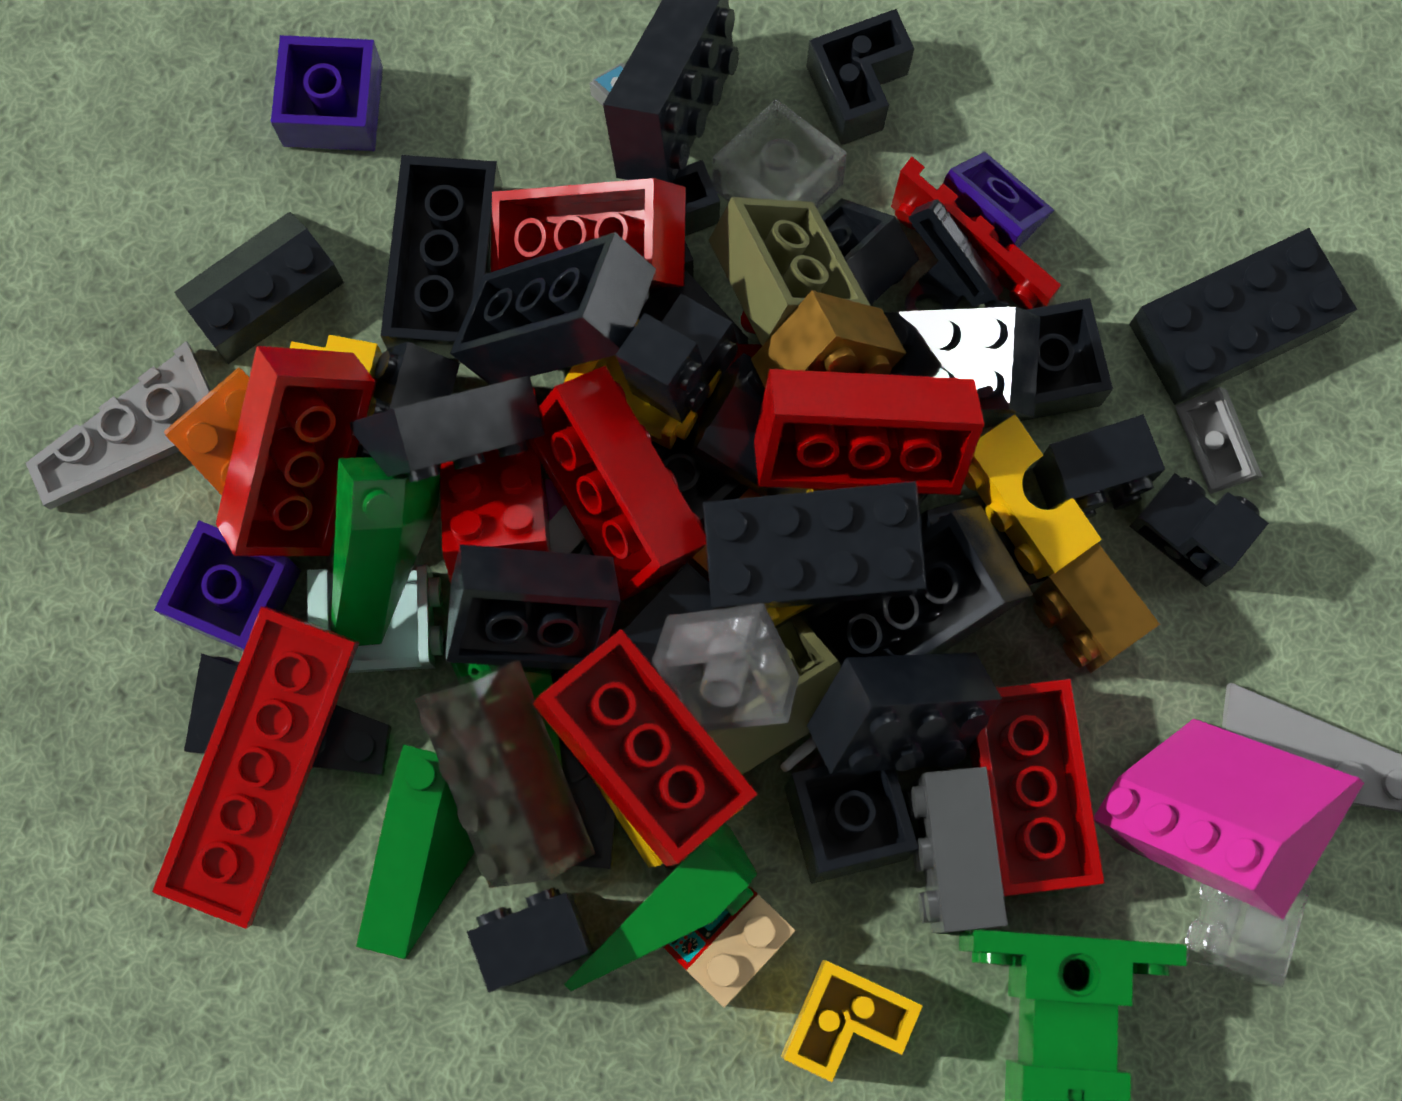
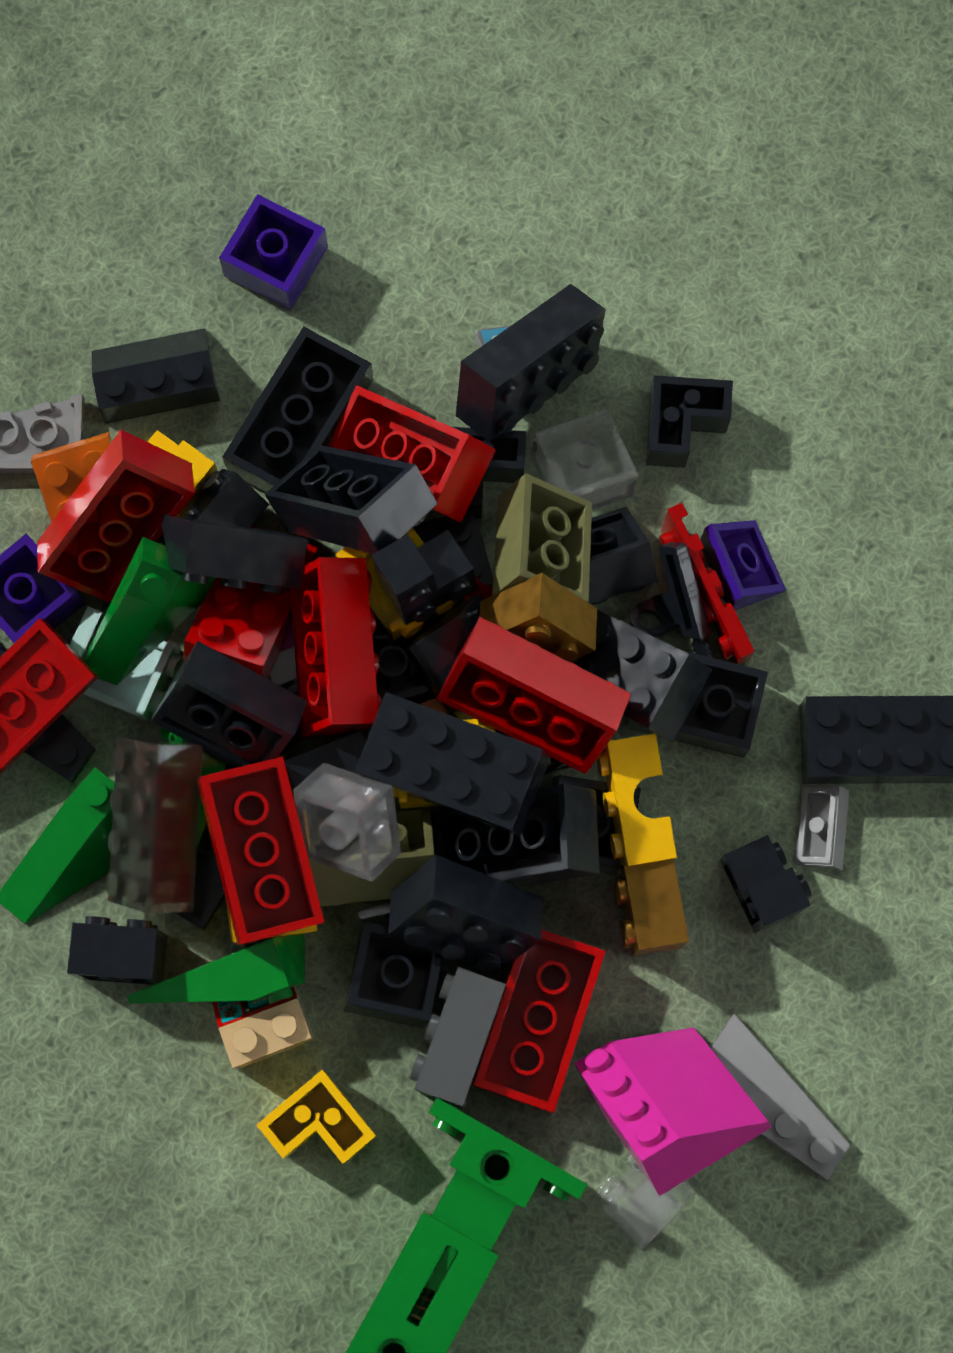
camera: 25 degrees right, 0 degrees up
(1101, 467) = (710, 805): black brick -> none

